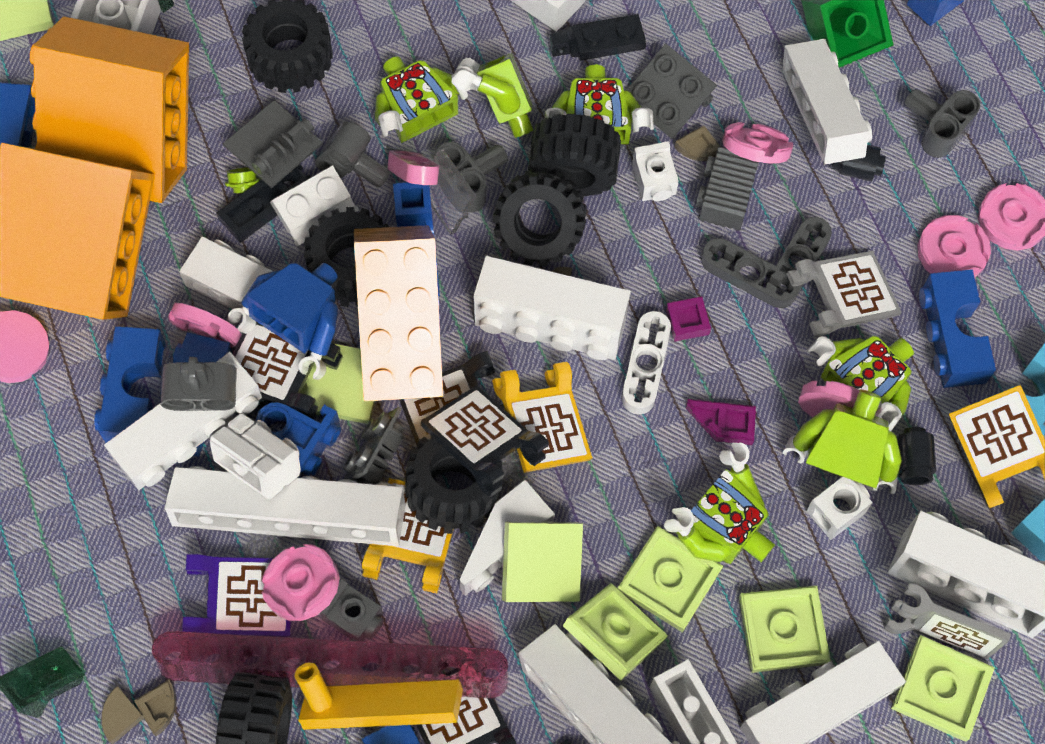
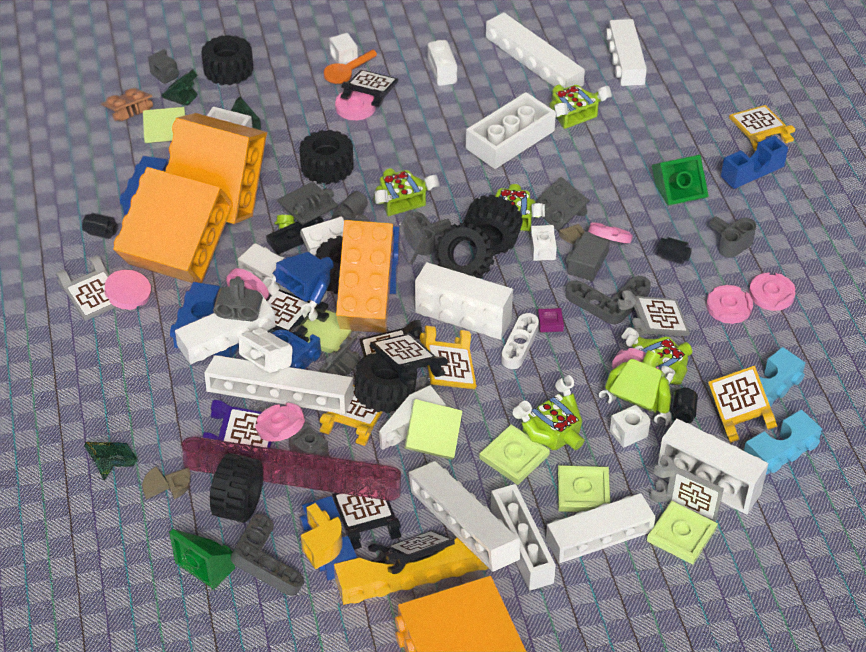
camera: 10 degrees right, 20 degrees down
(375, 703) = (319, 489): yellow piece -> none
(413, 167) = (392, 217): bright pink beam -> none
(504, 89) = (454, 186): lime torso -> none
(600, 38) = (521, 174): black hinge -> none
(615, 631) = (473, 471): yellowish green tile -> none
(724, 420) = (557, 371): magenta tile -> none
(826, 101) = (657, 214): white brick -> none
(958, 357) = (722, 328): blue arch -> none

